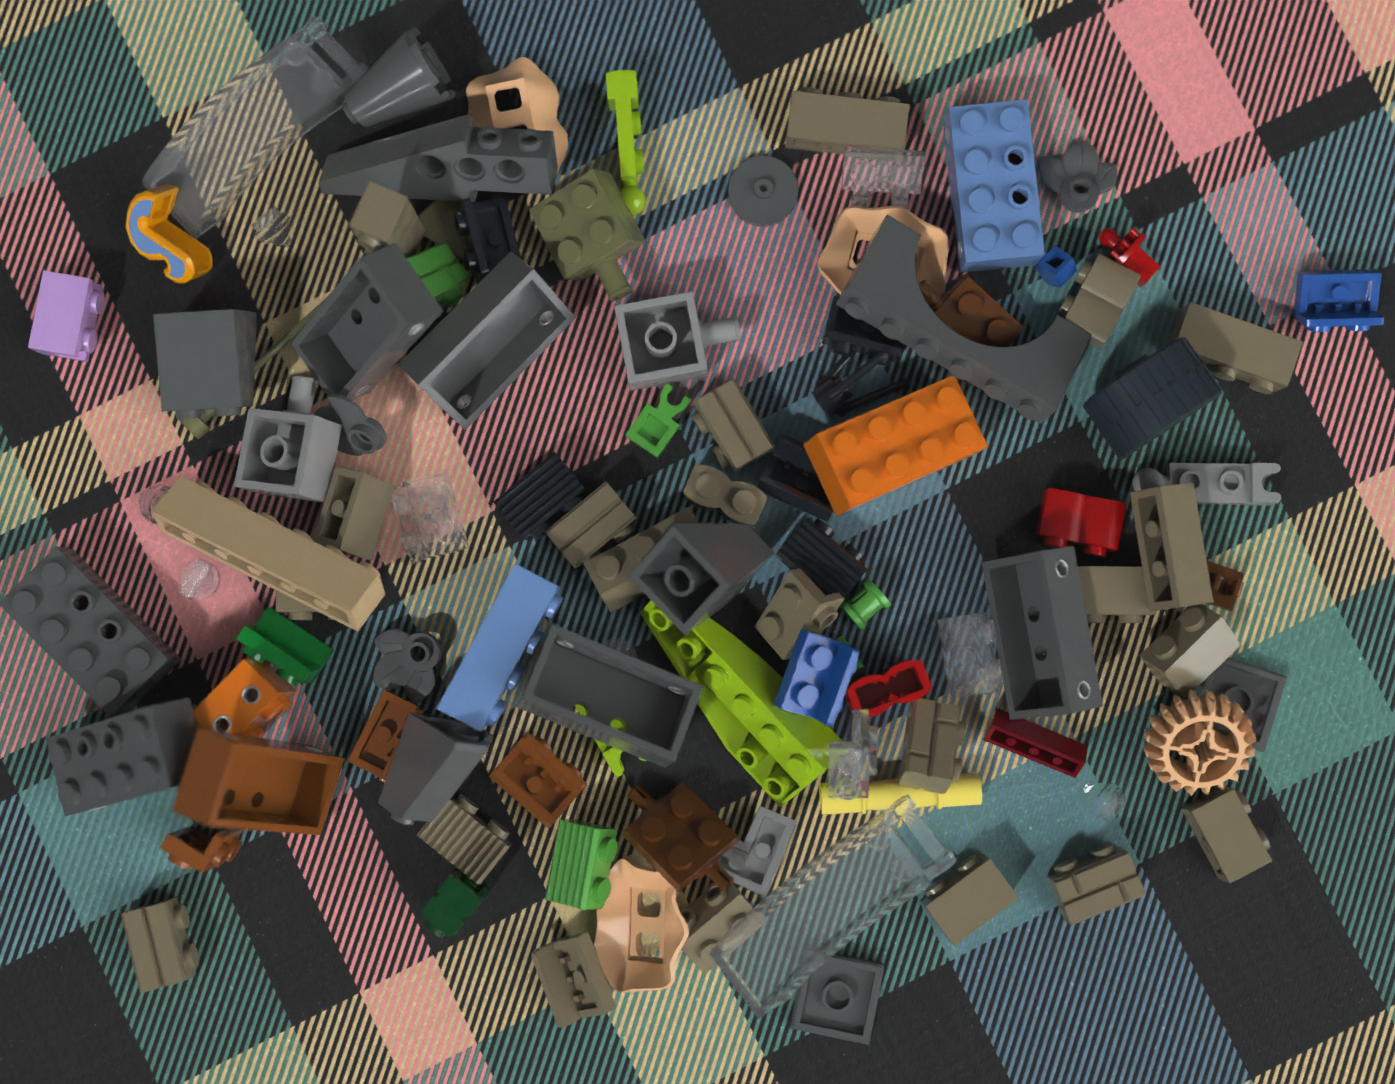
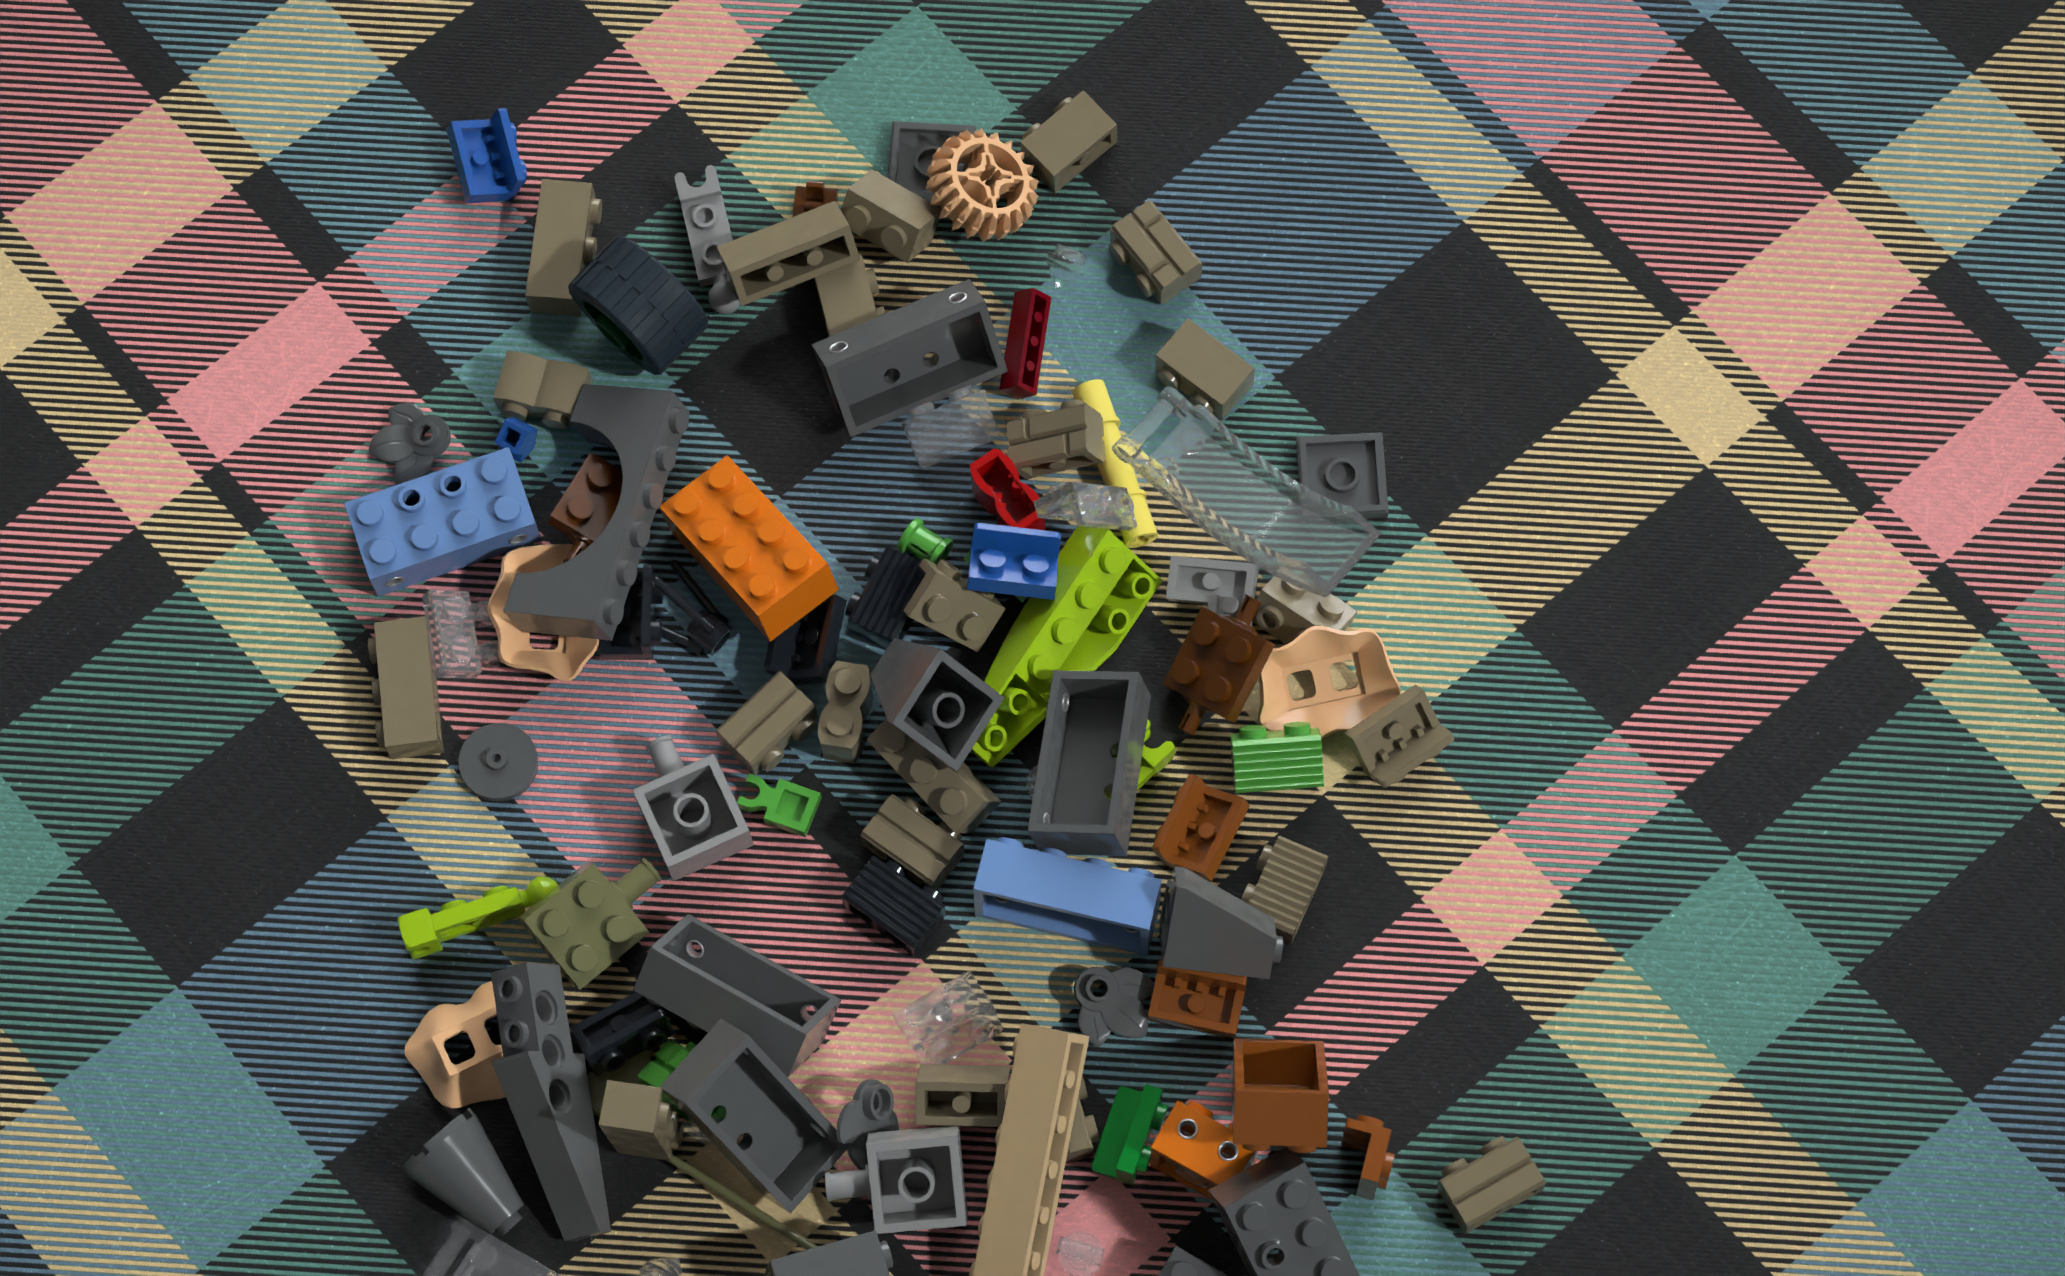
camera: 100 degrees left, 15 degrees down
(453, 904) = (1353, 874): dark green brick -> none
(1080, 521) = (781, 353): red brick -> none
(1128, 254) = (482, 372): red piece -> none

